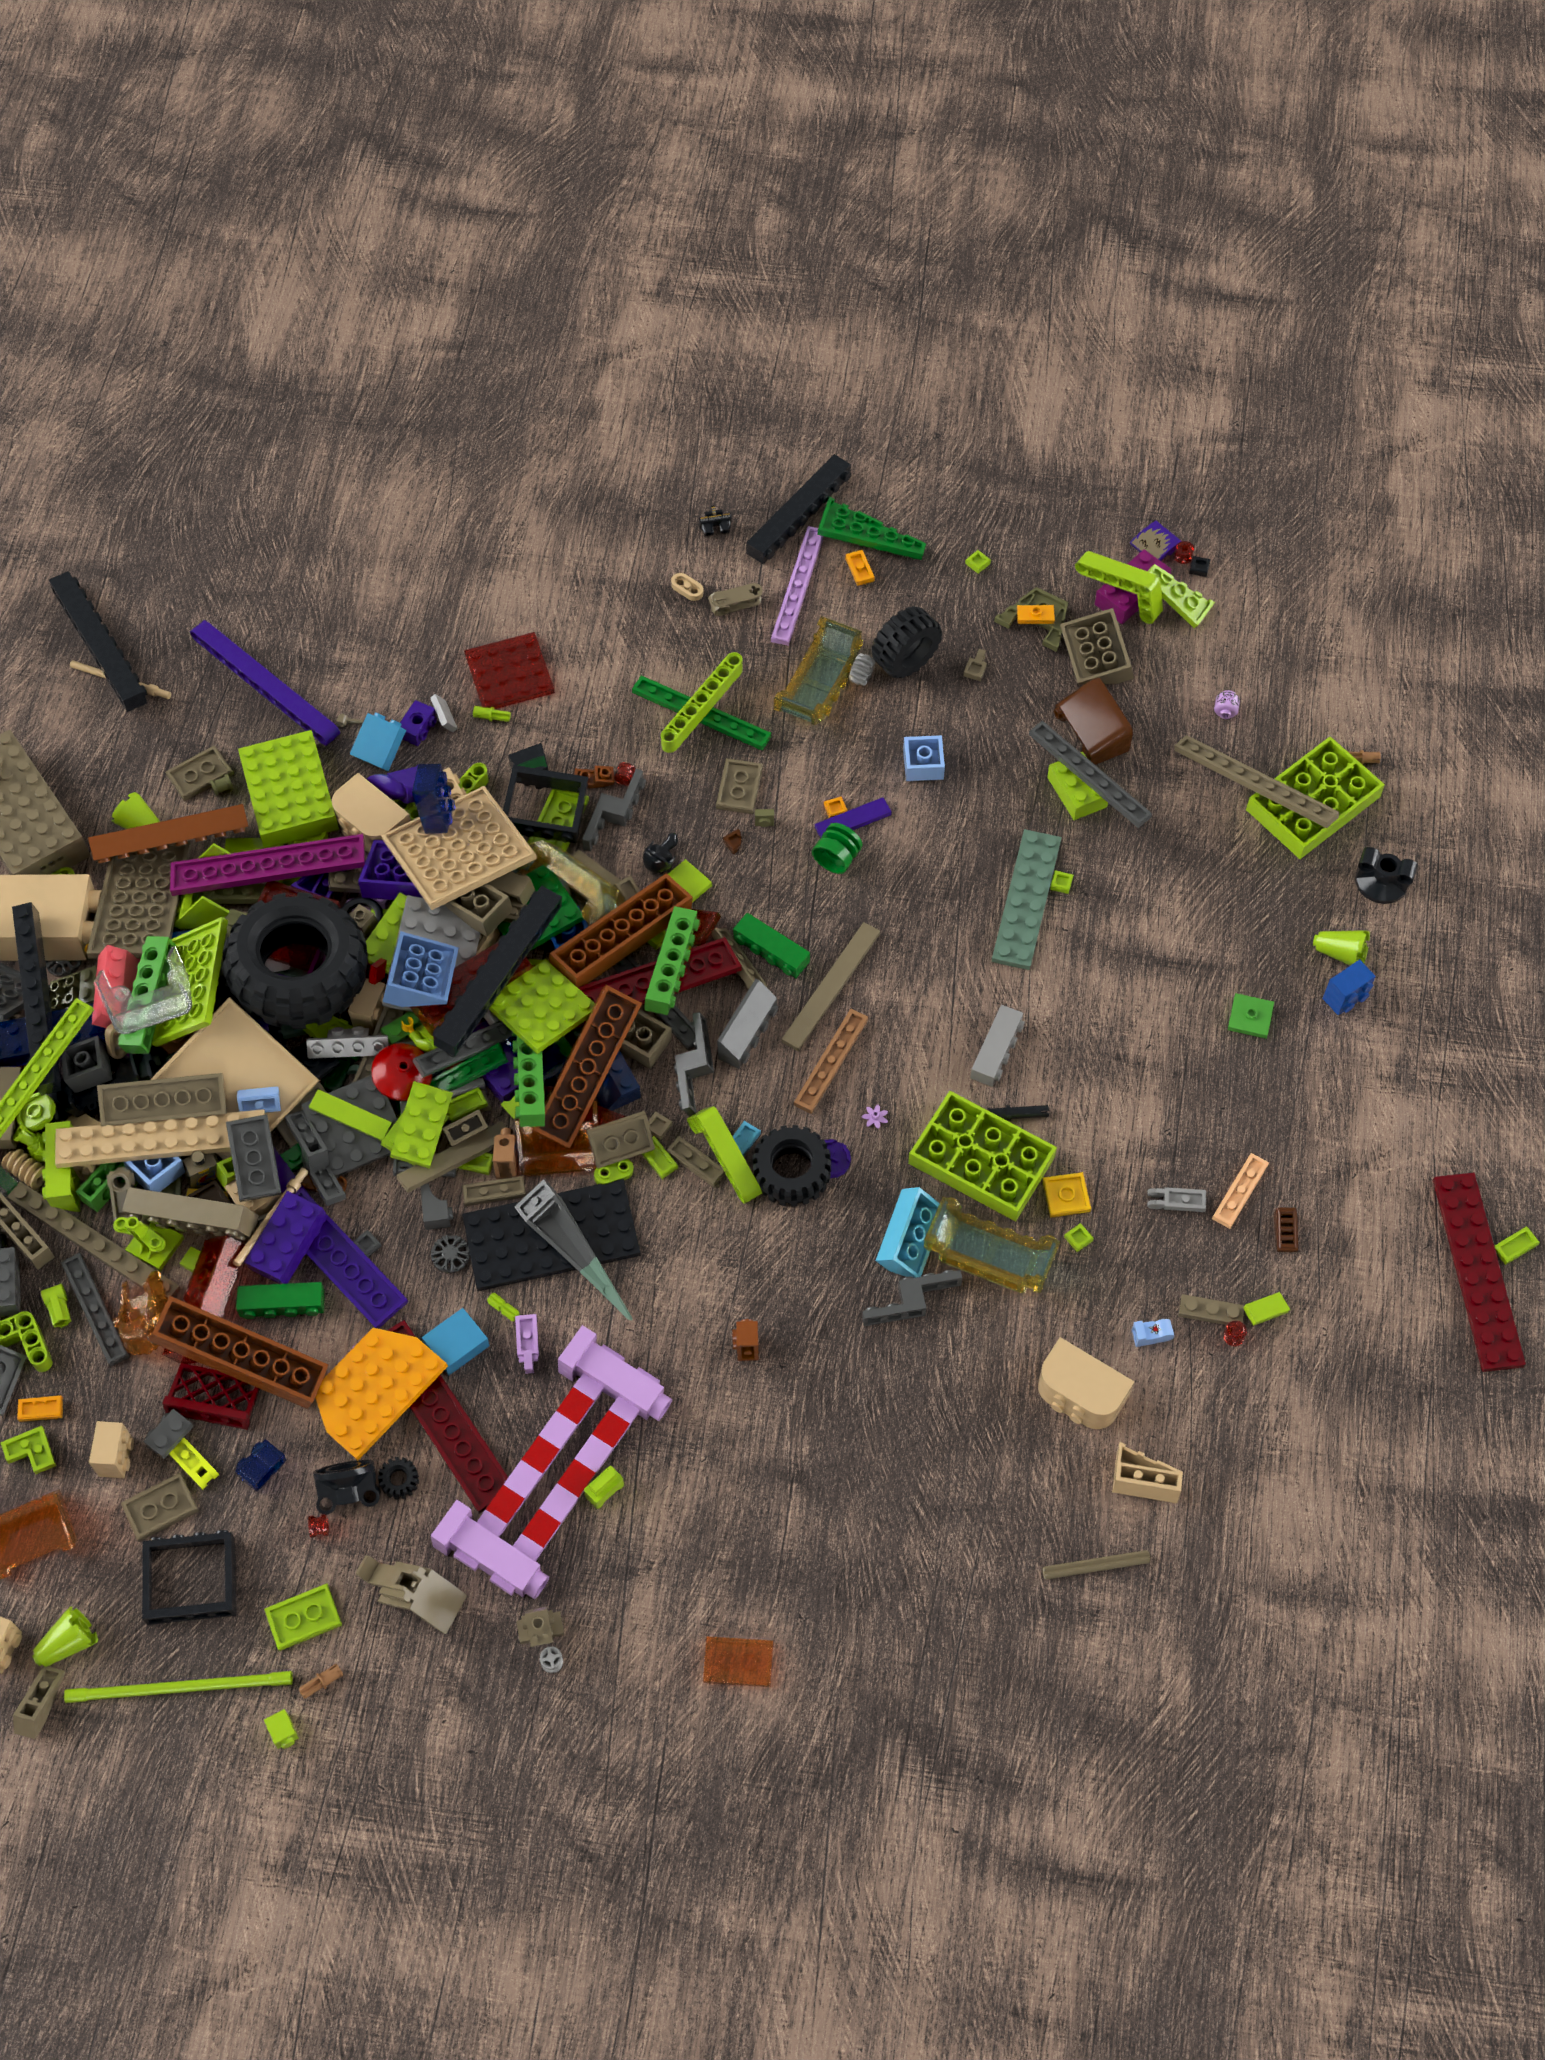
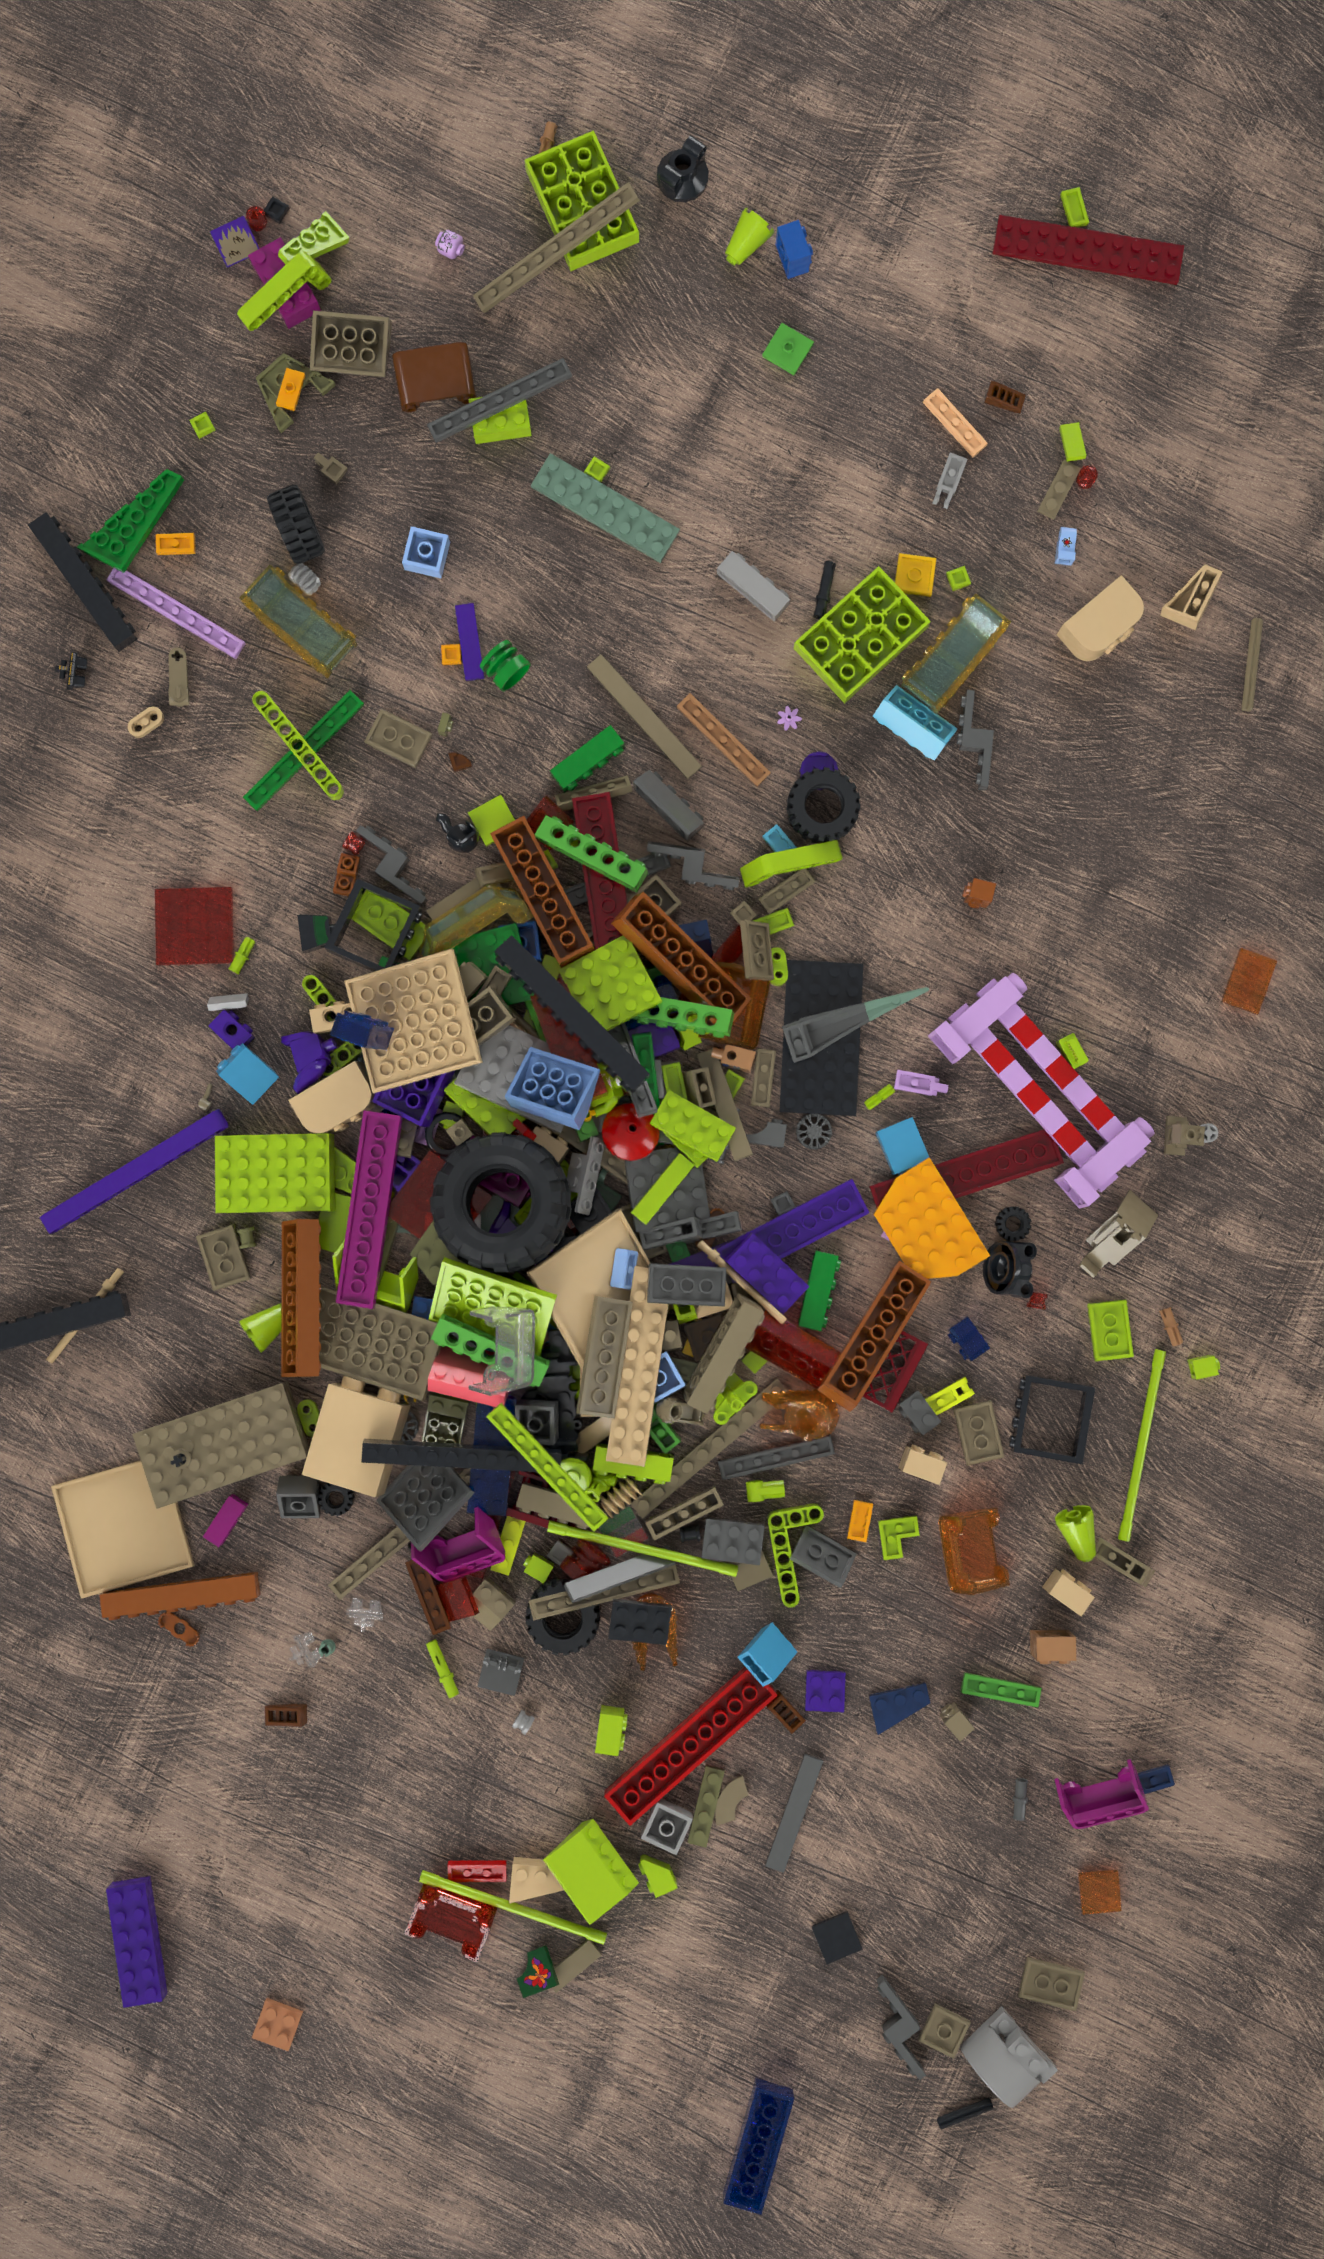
camera: 75 degrees left, 25 degrees up
(112, 1046) = (524, 1393): tan plate -> none

